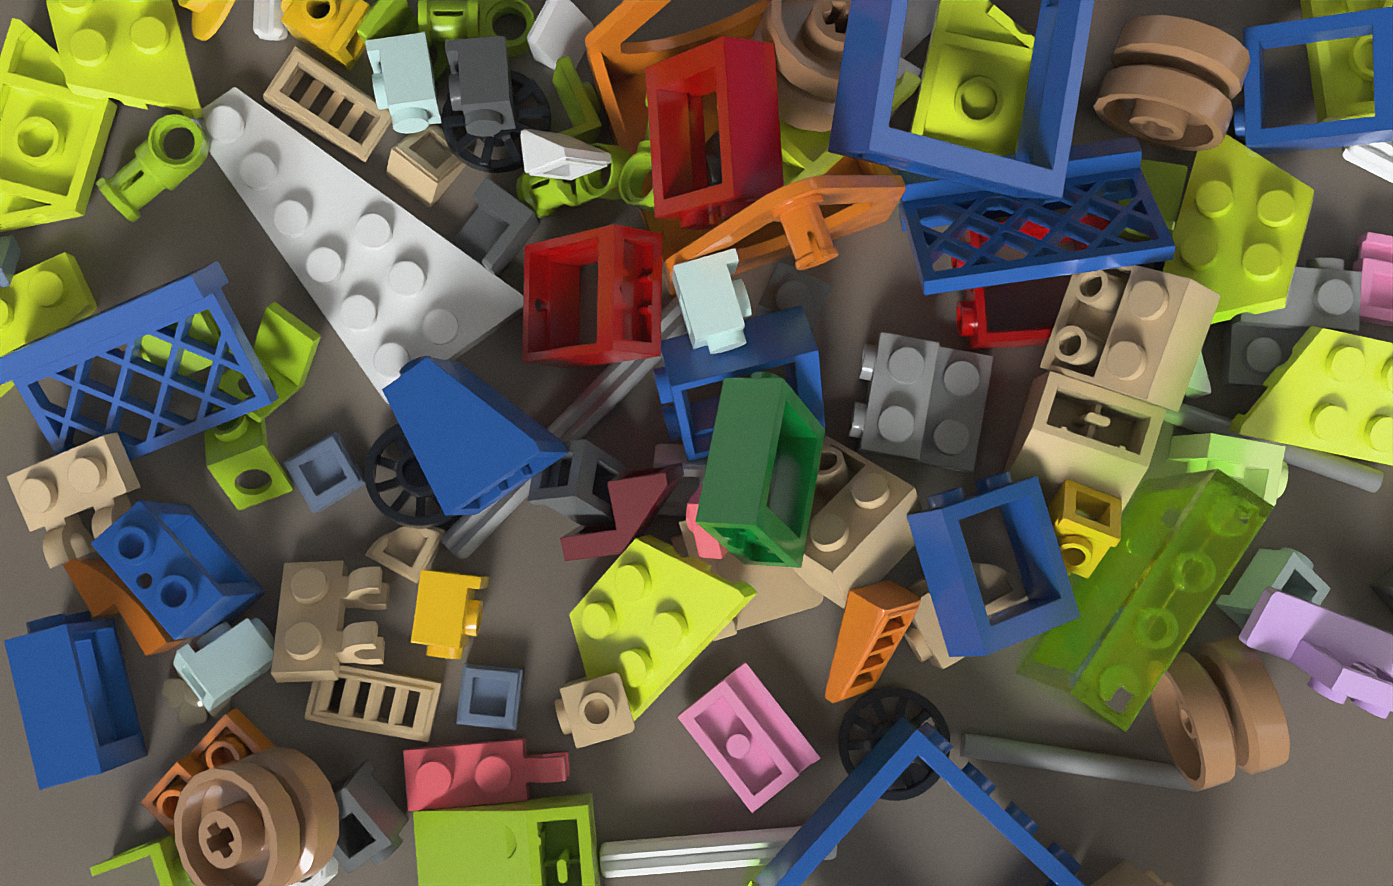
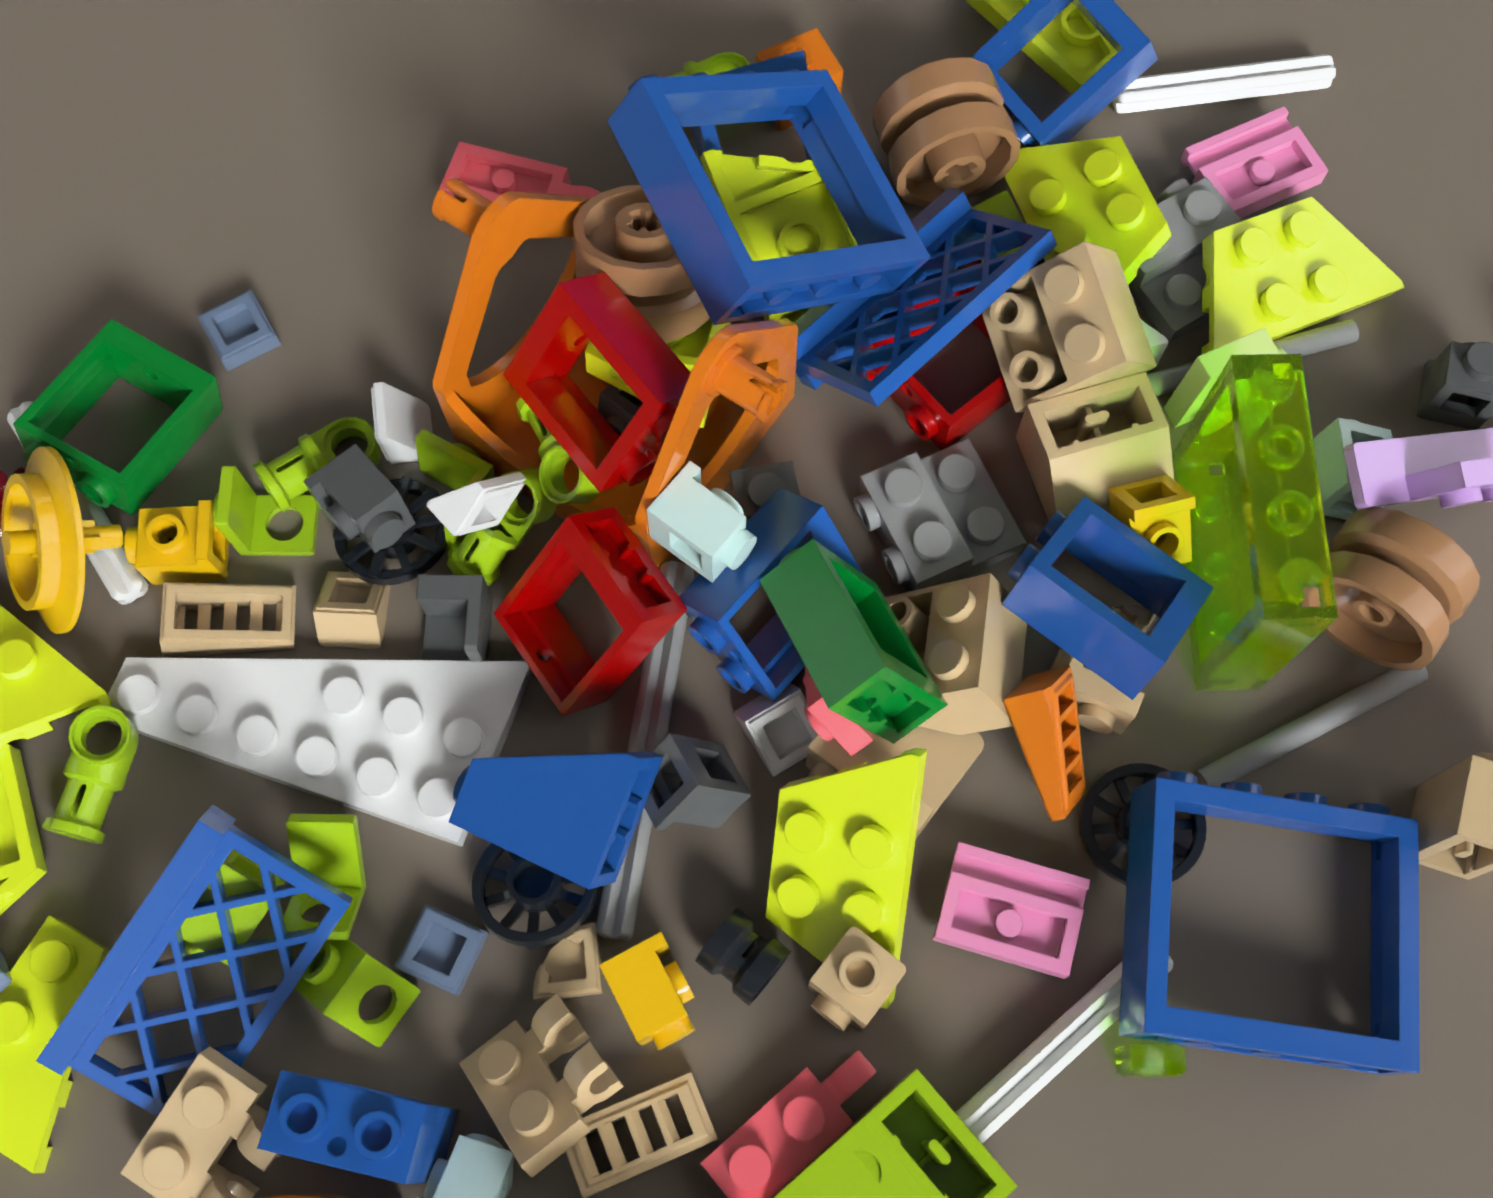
camera: 30 degrees left, 15 degrees down
(404, 81) = (287, 545): light aqua brick -> none
(490, 696) = (746, 1050): sand blue tile -> none
(526, 619) = (731, 944): none -> black wheel
(635, 503) = (757, 761): dark red slope -> none

